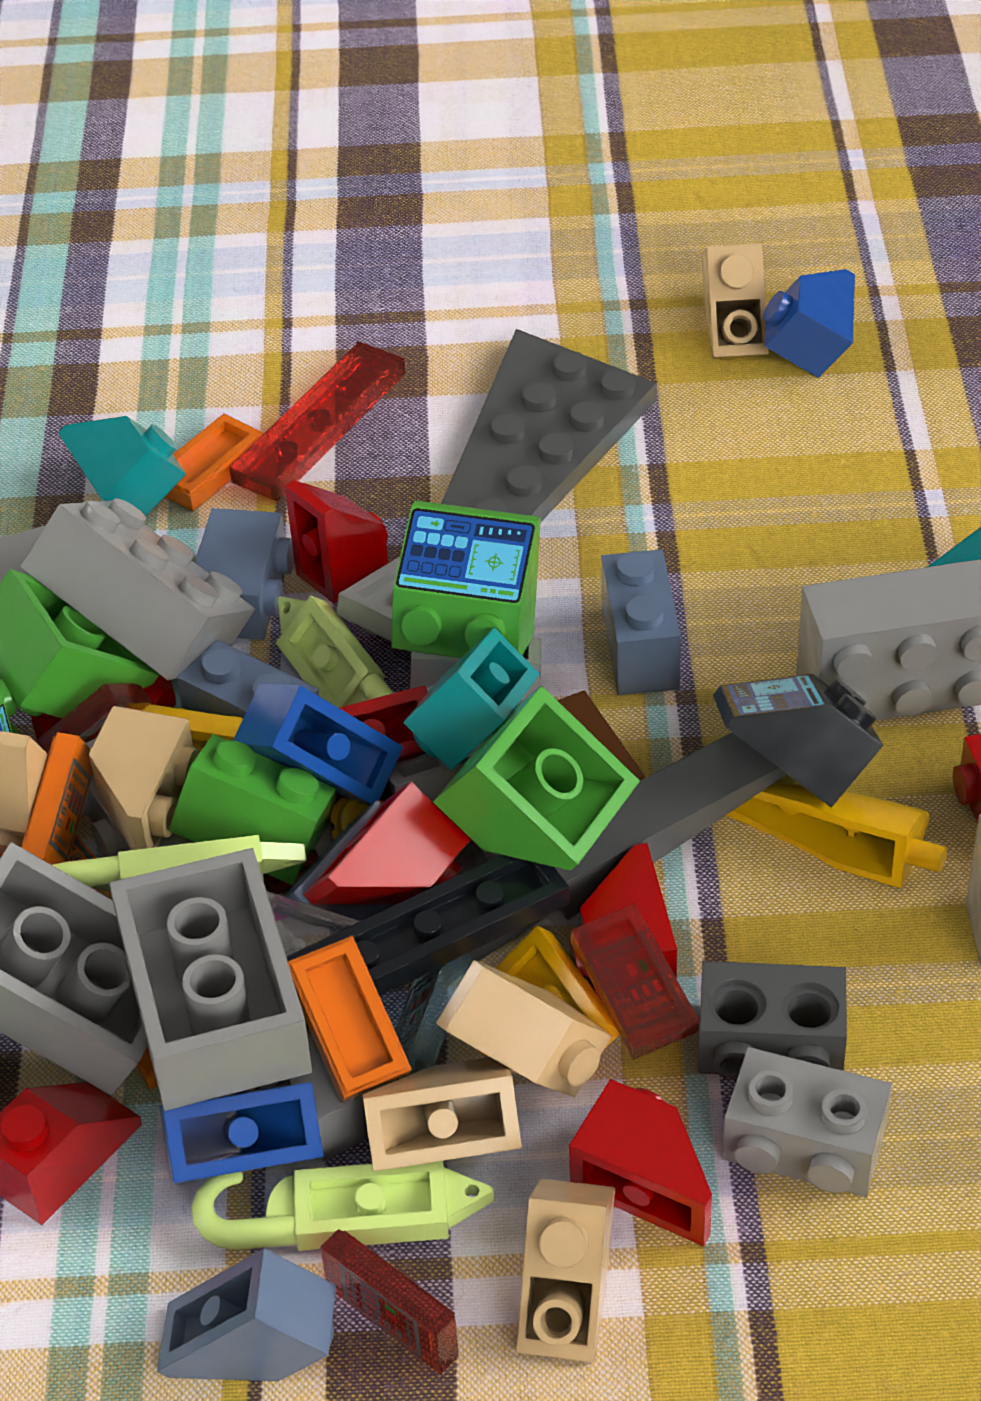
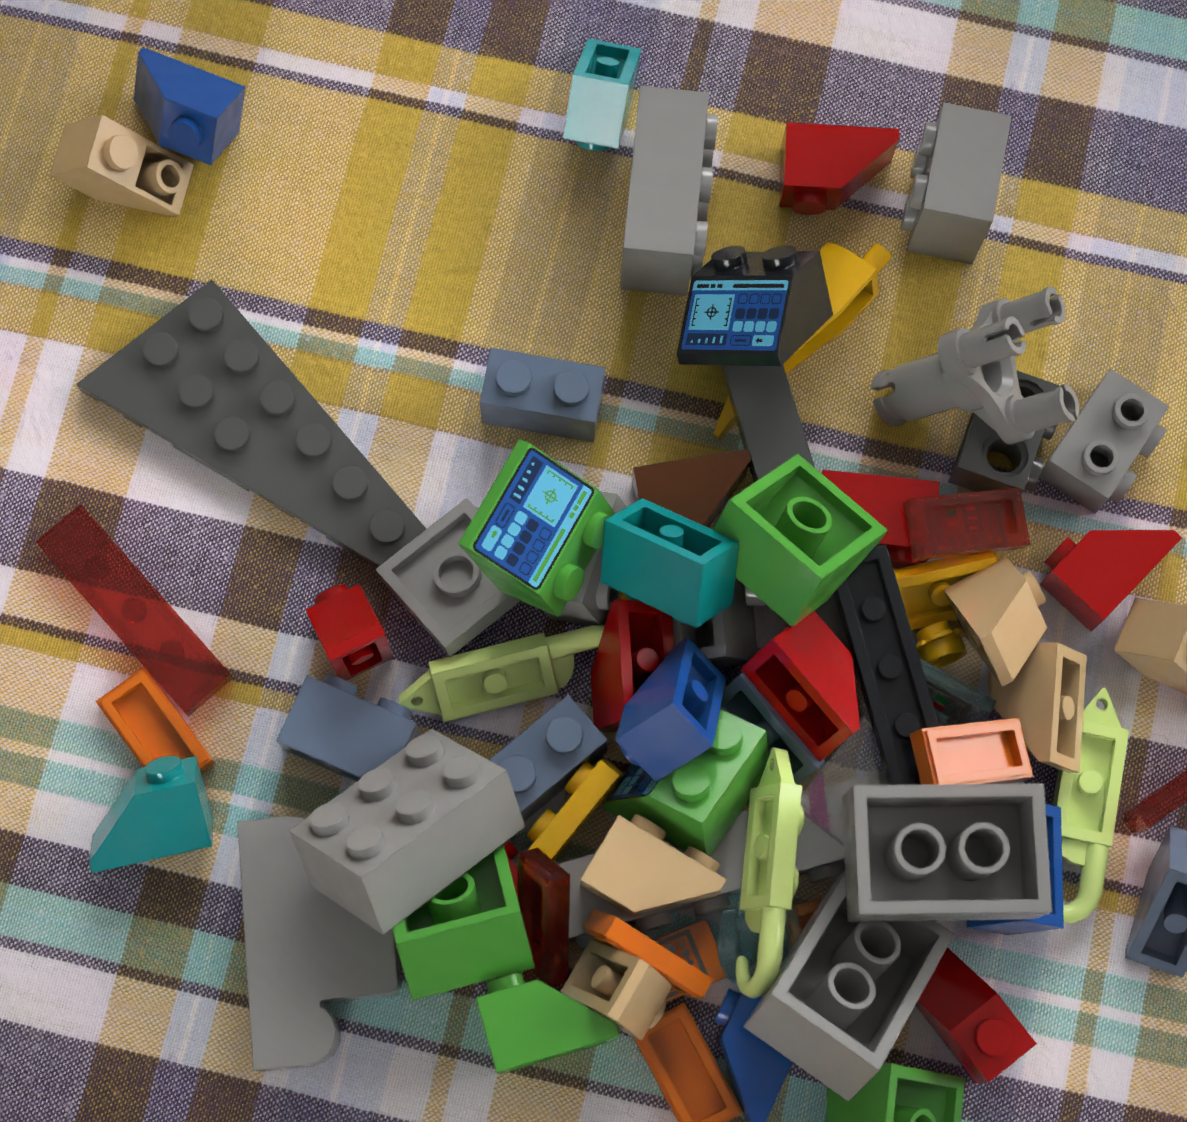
camera: 80 degrees left, 30 degrees up
(820, 927) = (980, 374): none -> light grey wheel

